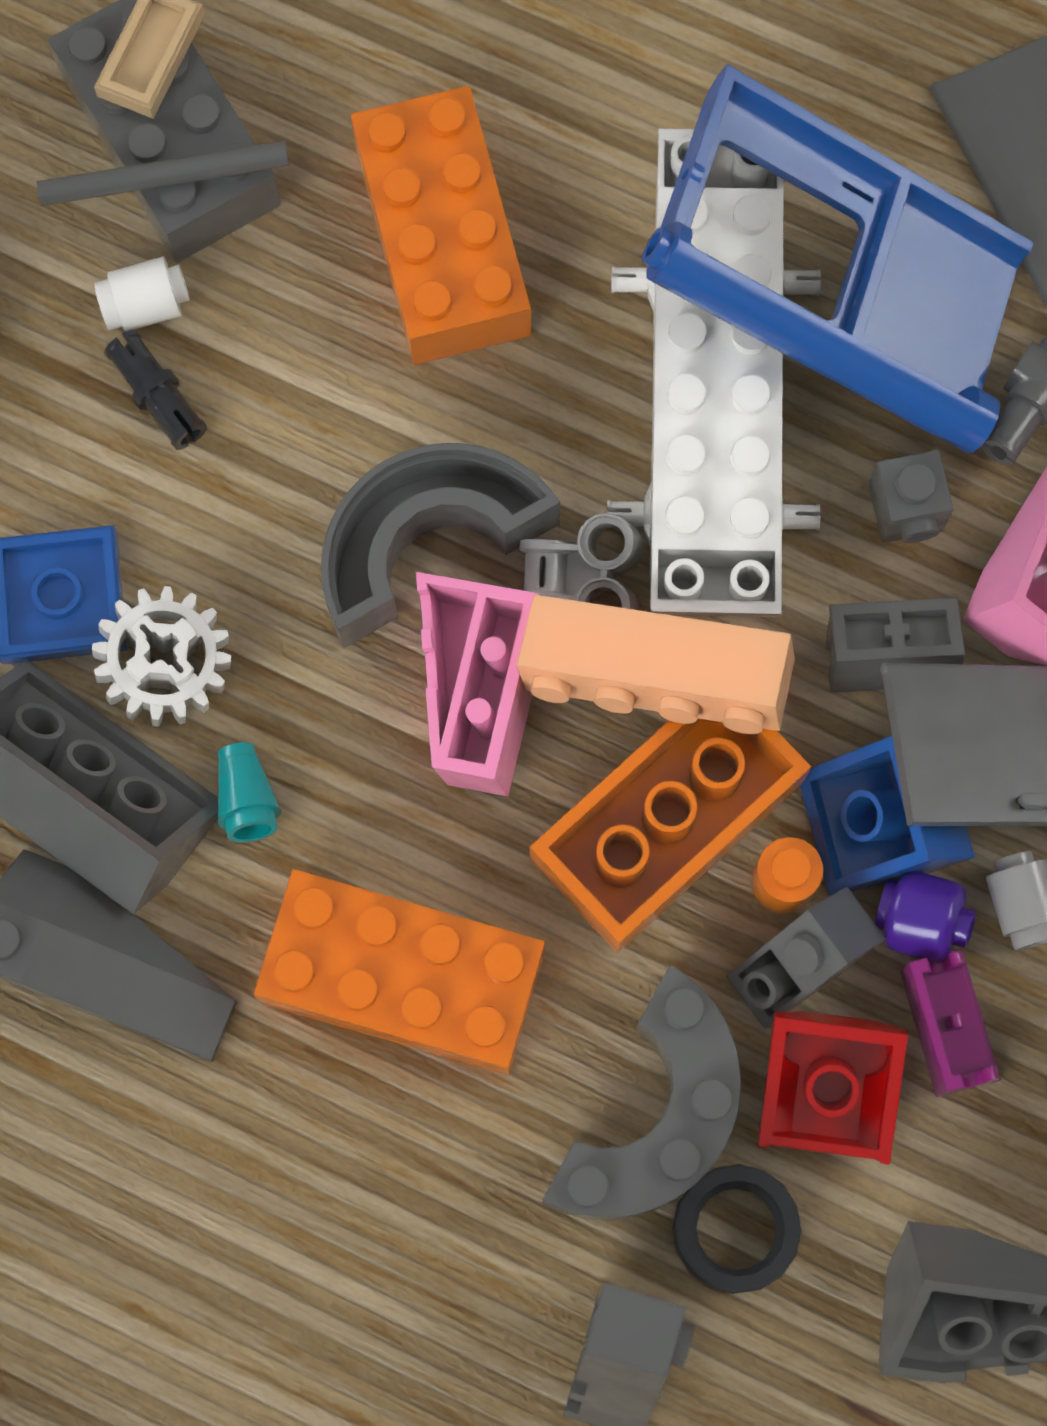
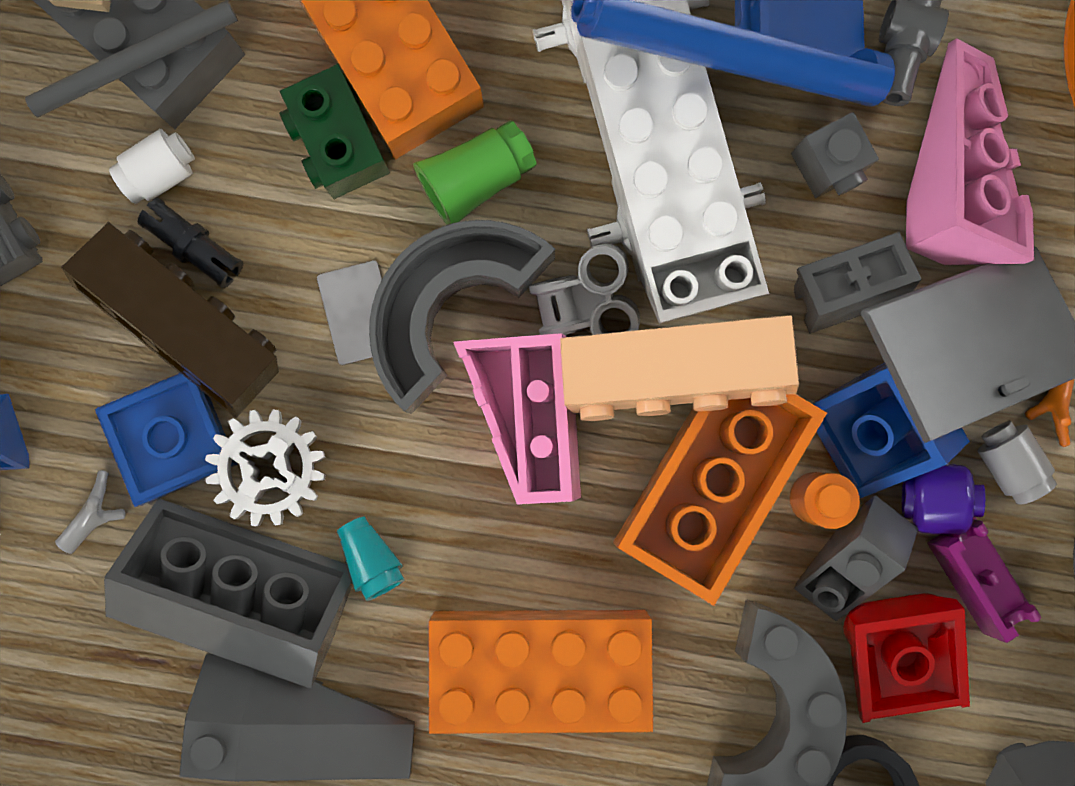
camera: 20 degrees left, 10 degrees up
(112, 464) = (172, 318): none -> dark brown brick
(307, 508) = (348, 306): none -> flat silver sticker
(354, 315) = (333, 131): none -> dark green brick
(499, 398) = (475, 171): none -> bright green plant

